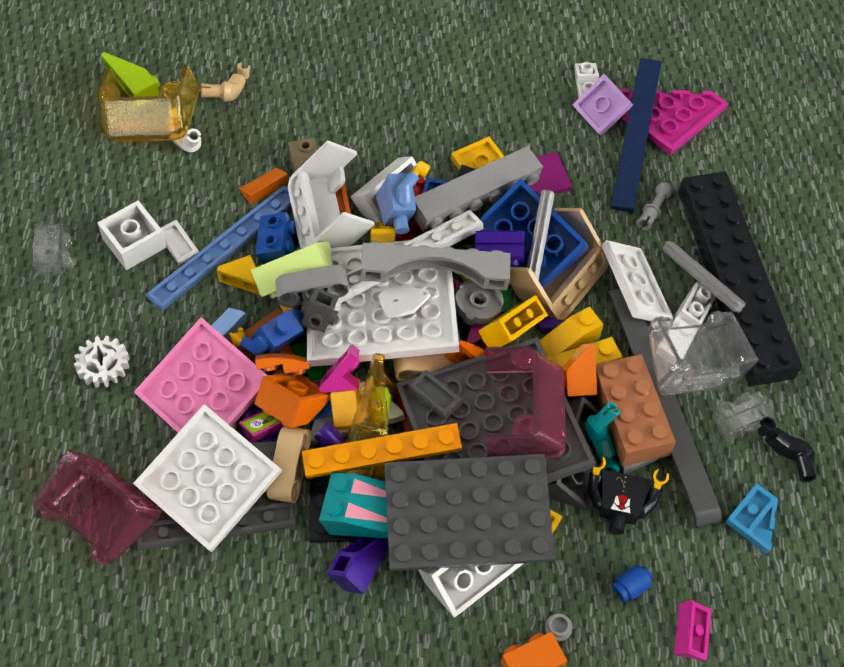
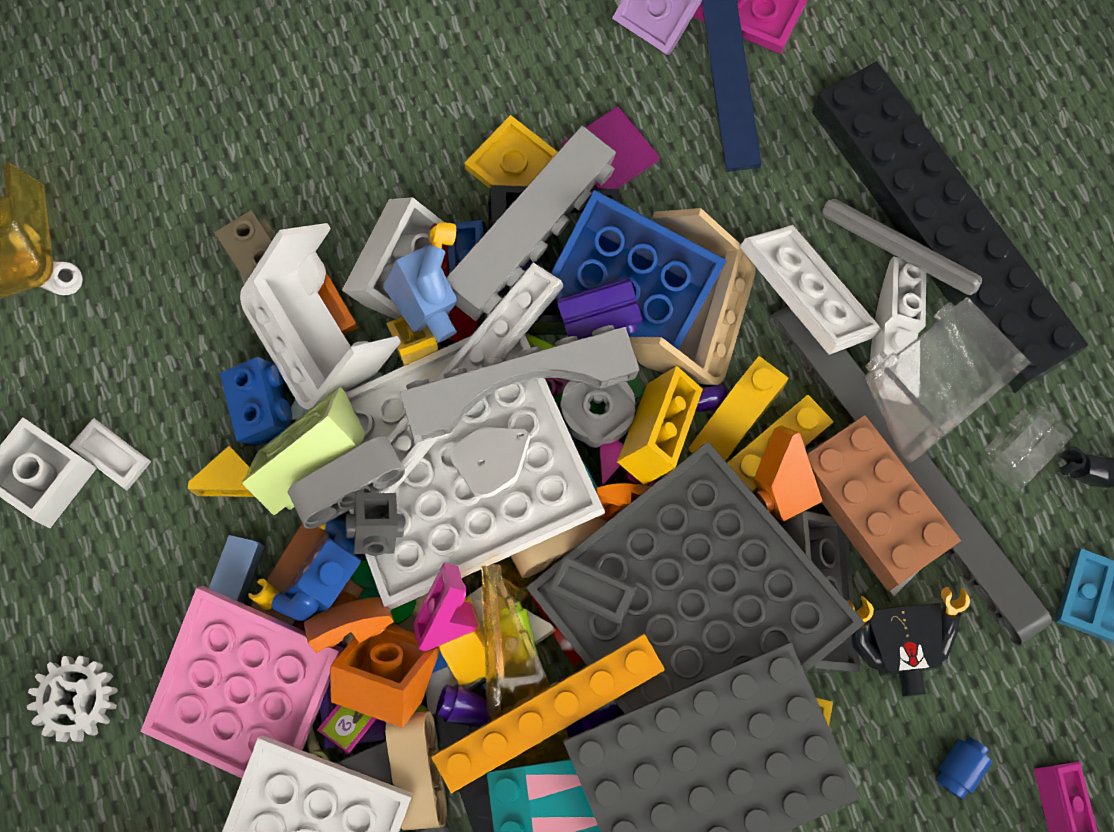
camera: 15 degrees left, 15 degrees up
(217, 251) = (177, 445): medium blue tile -> none
(227, 90) = (90, 168): tan arm -> none
(264, 185) = (204, 311): orange slope -> none
(540, 231) = (652, 269): light grey axle -> none
(546, 428) = (785, 603): clear pink windscreen -> none
(600, 435) = (845, 560): teal arm -> none
(651, 211) = (787, 159): light grey pin -> none

